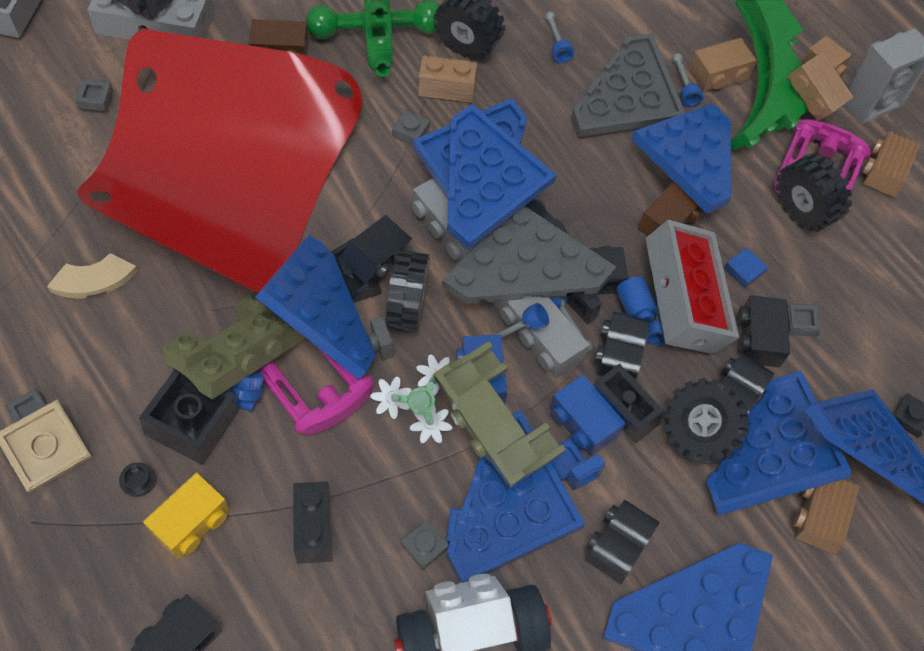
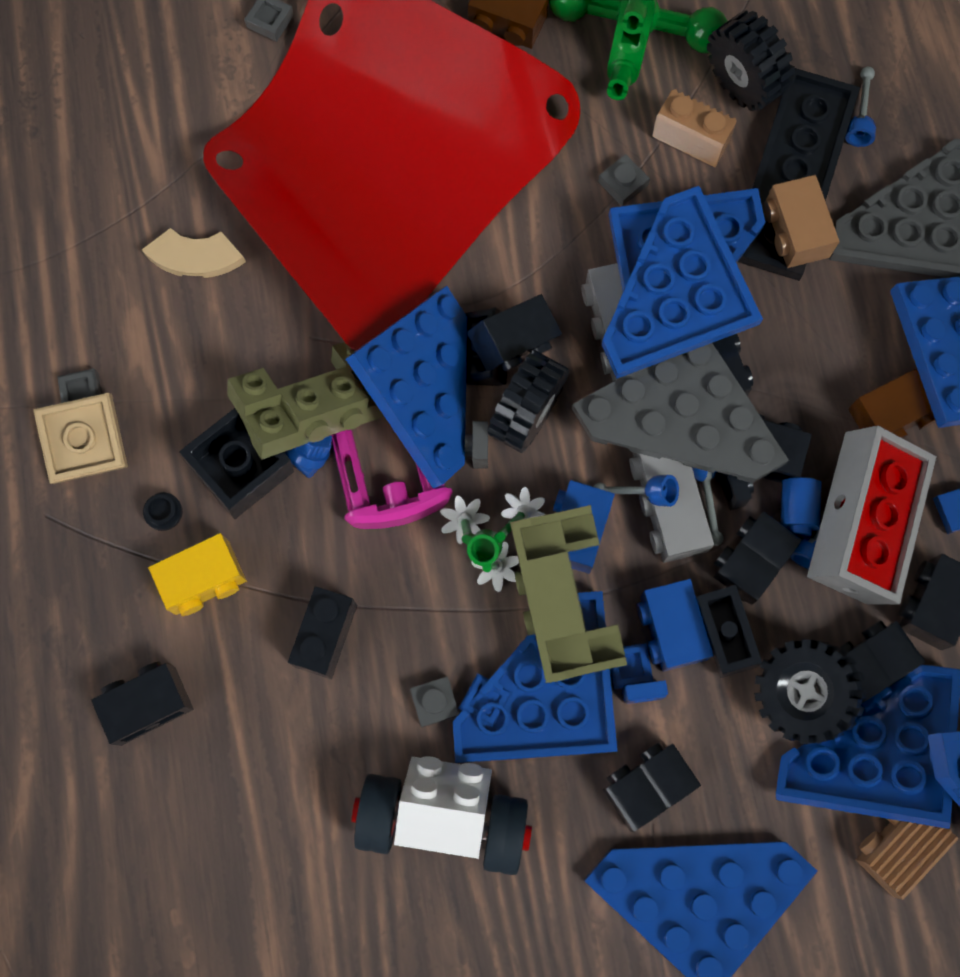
camera: 30 degrees right, 15 degrees up
(532, 82) = (801, 144): none -> black plate
(551, 113) = (800, 221): none -> medium nougat brick

